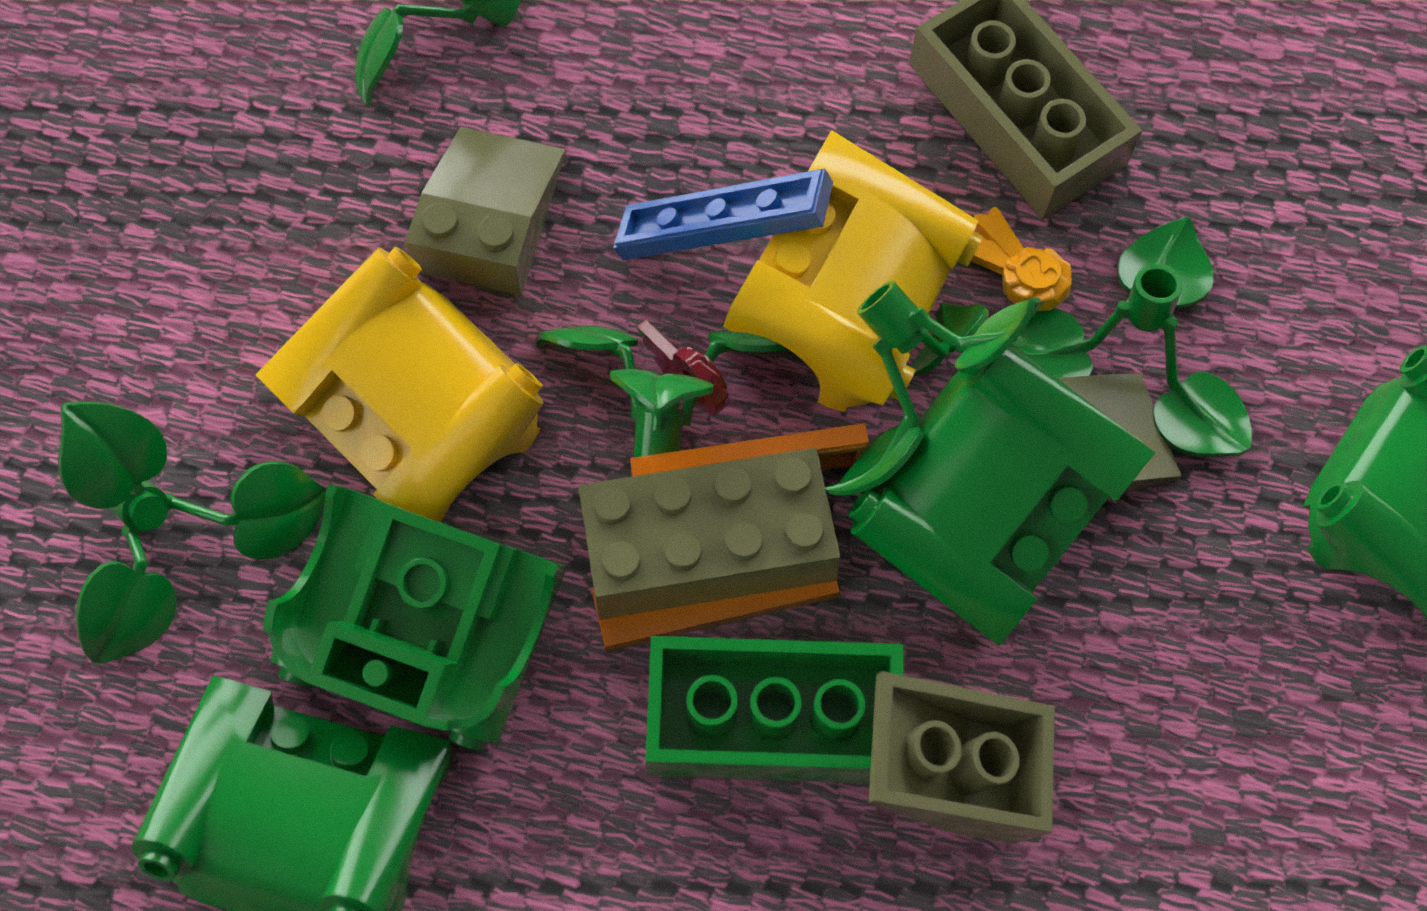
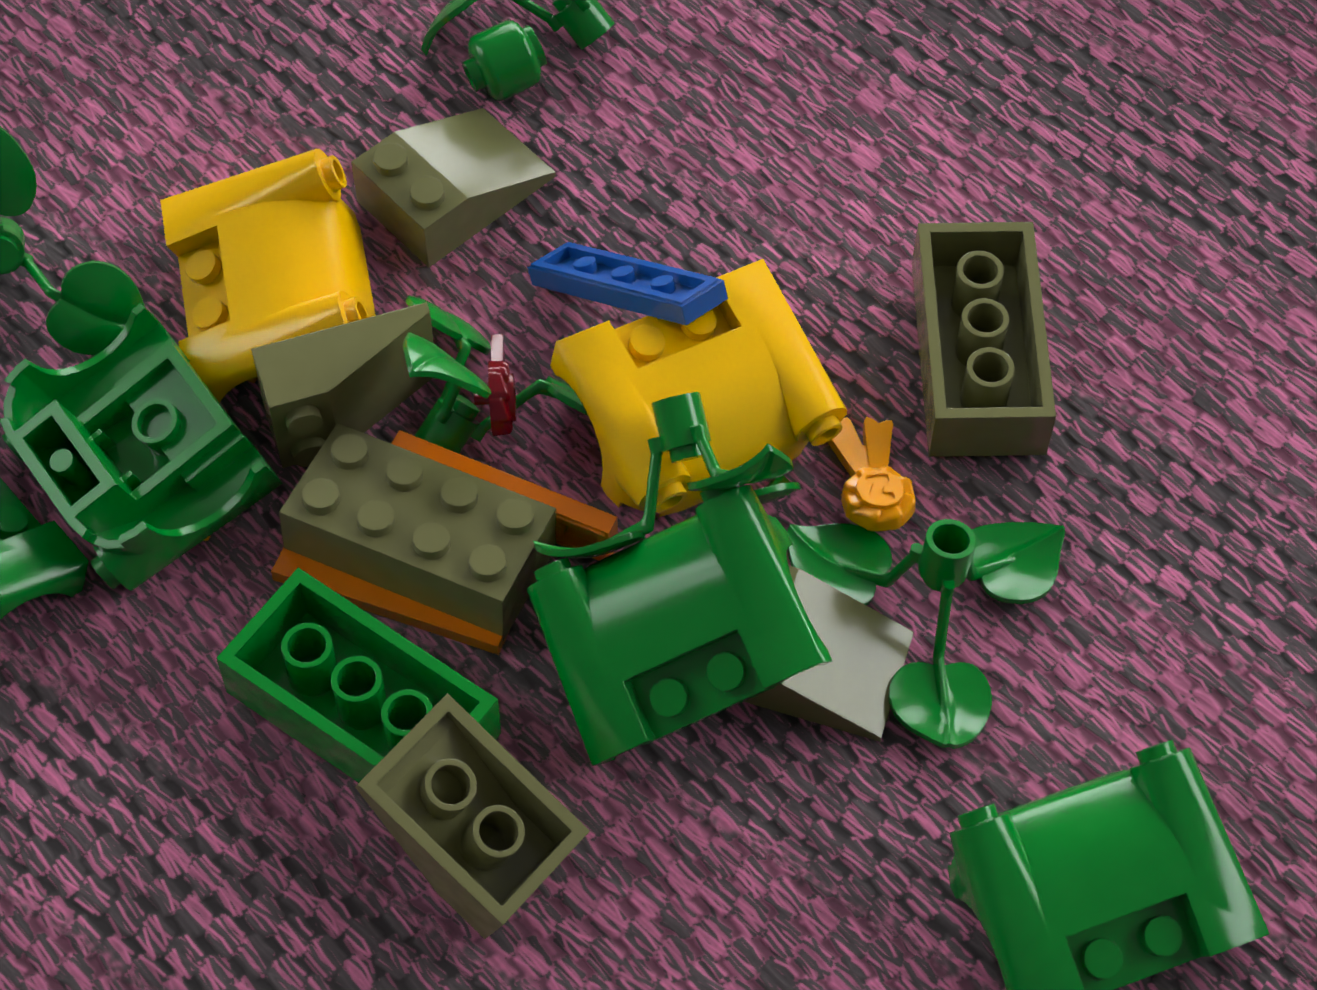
camera: 35 degrees right, 10 degrees down
(453, 73) = (504, 60): none -> green head
(538, 460) = (337, 376): none -> olive slope

